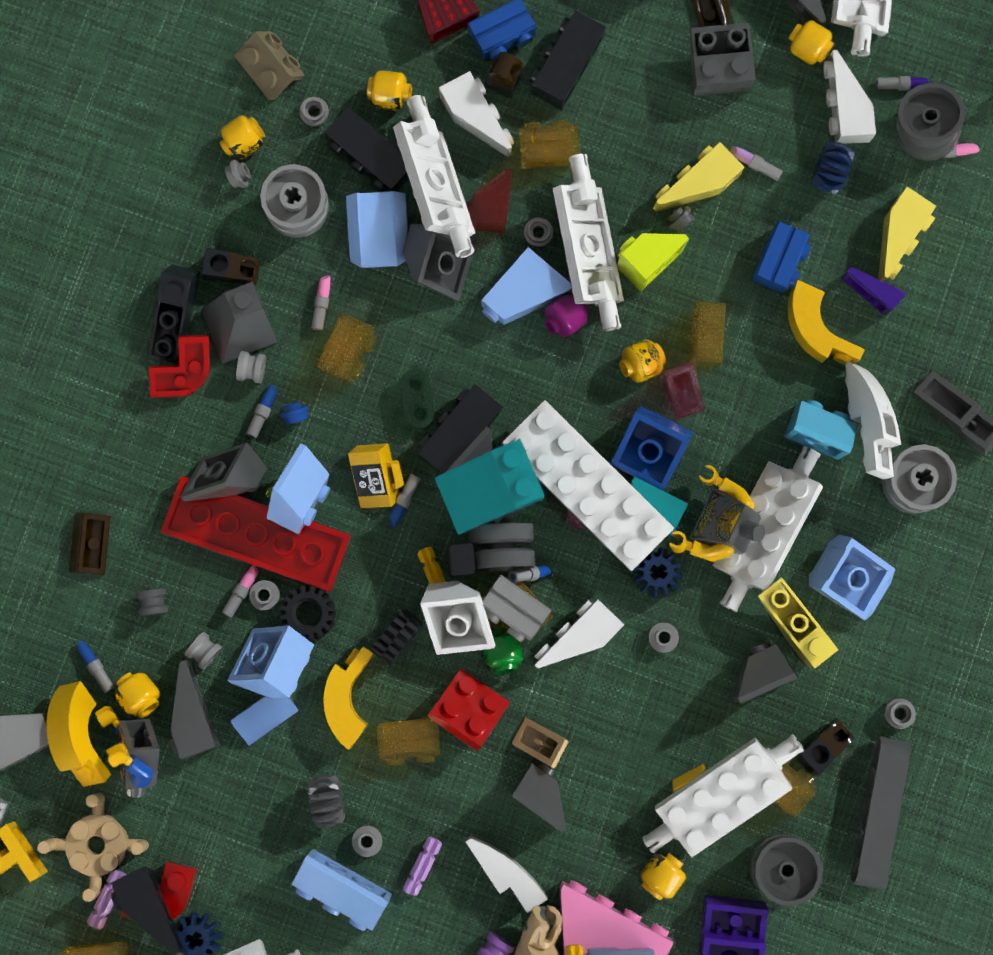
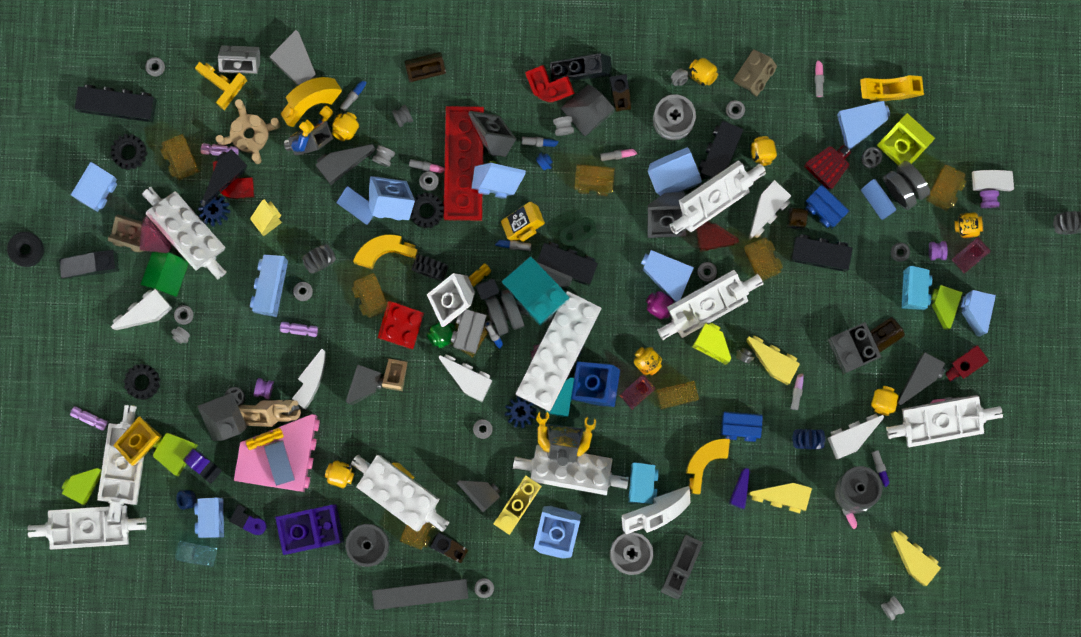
camera: 70 degrees right, 0 degrees up
(235, 862) = (266, 217): none -> light yellow slope

